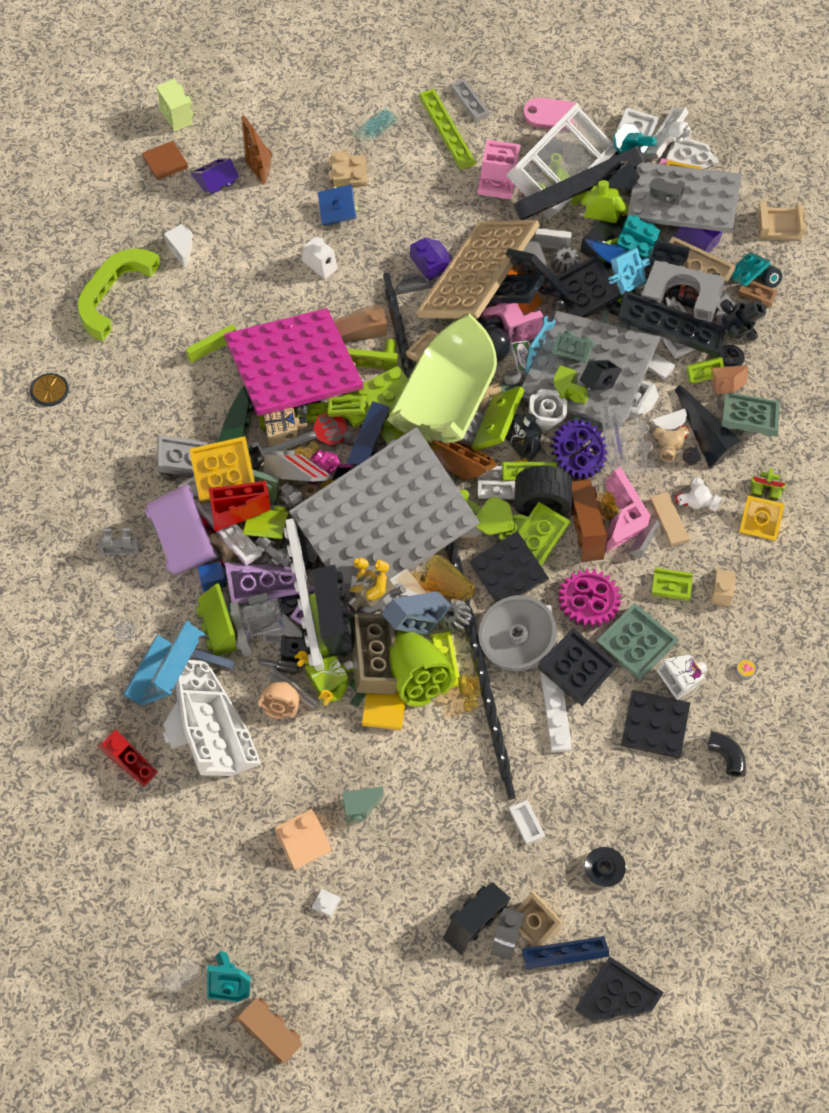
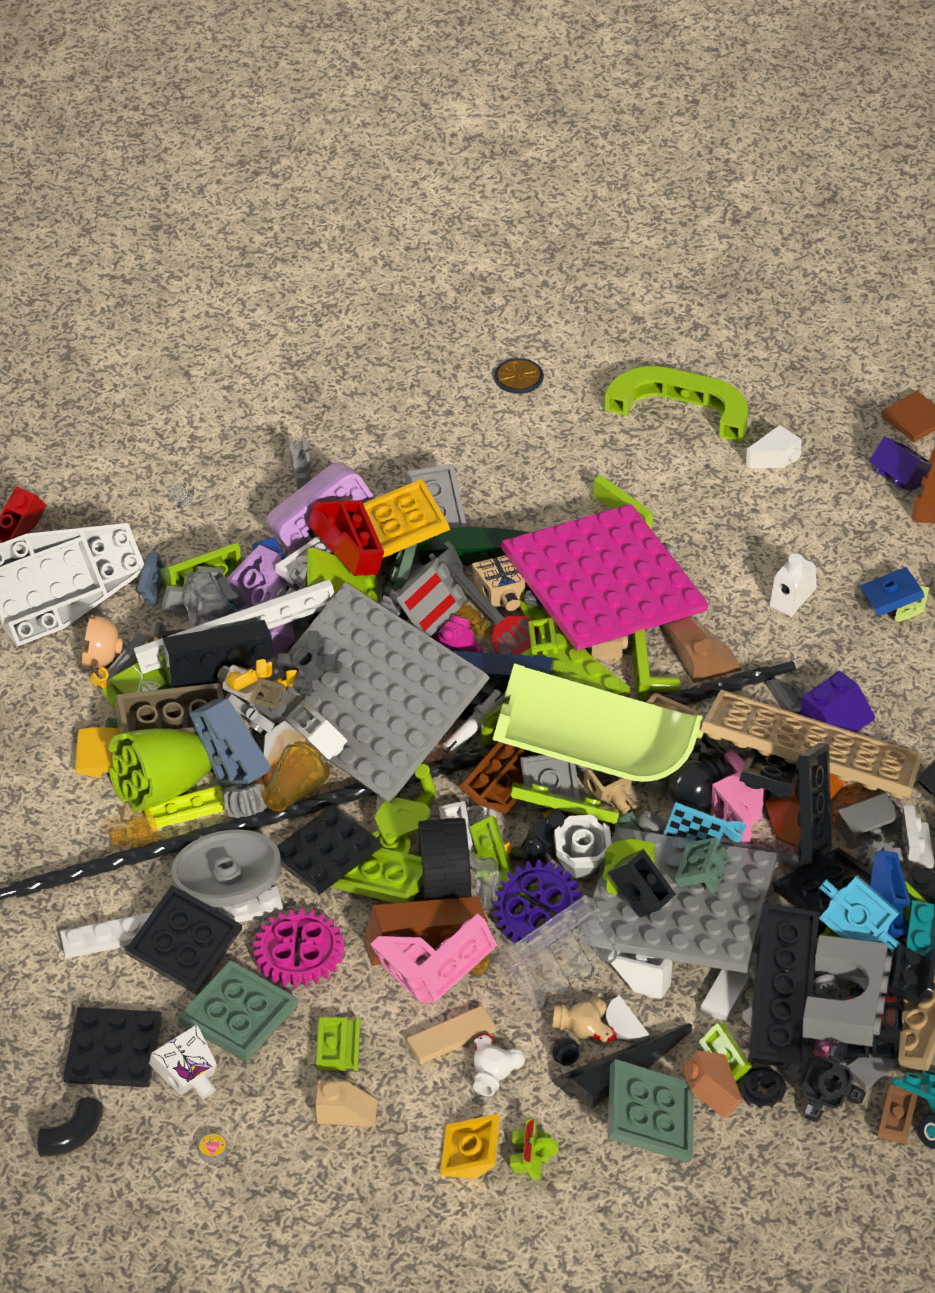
camera: 85 degrees right, 15 degrees down
(162, 666) = (110, 505): dark azure piece -> none
(342, 540) = (309, 663): none -> dark grey pin
(413, 555) = (316, 730): none -> white slope
(644, 539) = (408, 1007): light grey slope -> none

